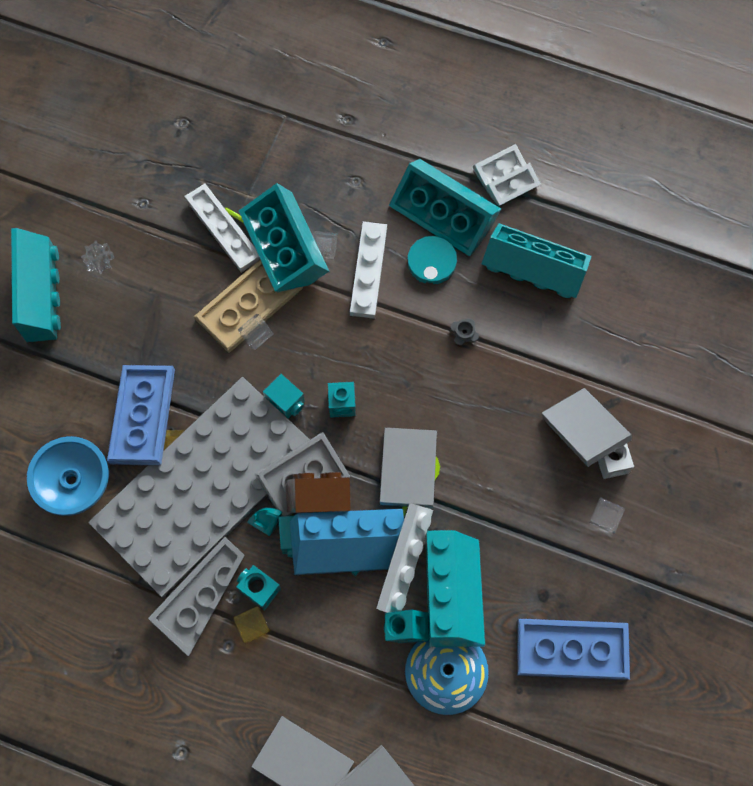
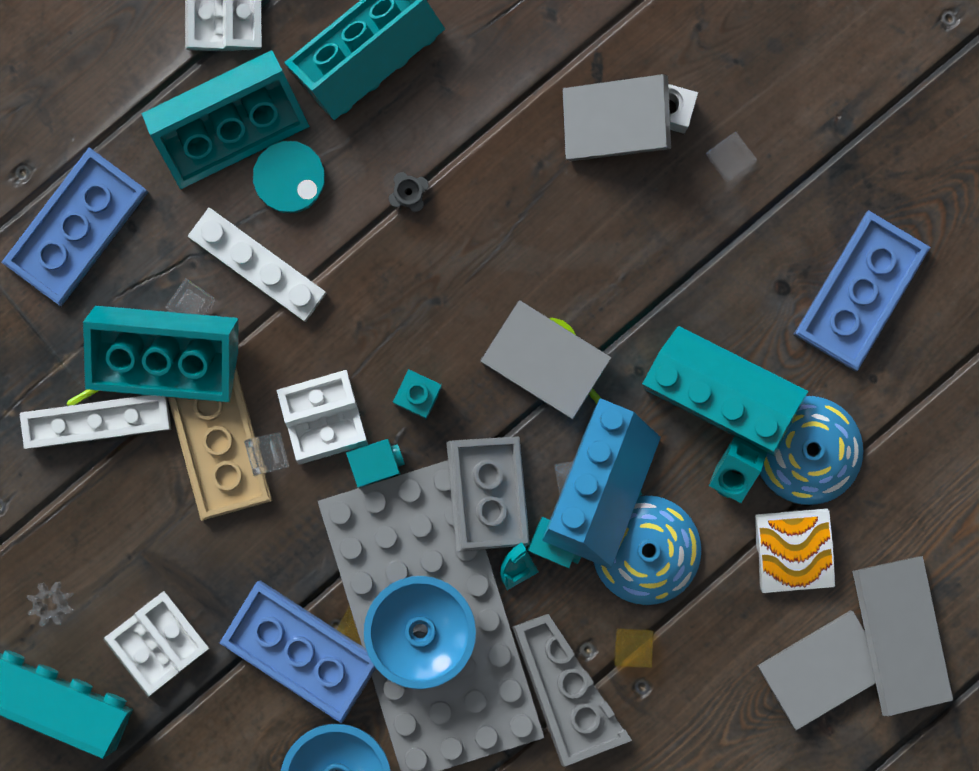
camera: 65 degrees left, 15 degrees up
(103, 330) = (156, 643): none -> white slope
(184, 457) = (403, 655): none -> dark azure dish
(263, 597) = (611, 622): teal brick -> none
(296, 353) = (322, 417): none -> white slope
(318, 494) = (530, 490): reddish brown brick -> none
(323, 618) = (675, 557): none -> dark azure dish
(332, 161) = (75, 227): none -> medium blue tile
(373, 698) = (795, 550): none -> slope
(405, 558) = (659, 427): white plate -> none

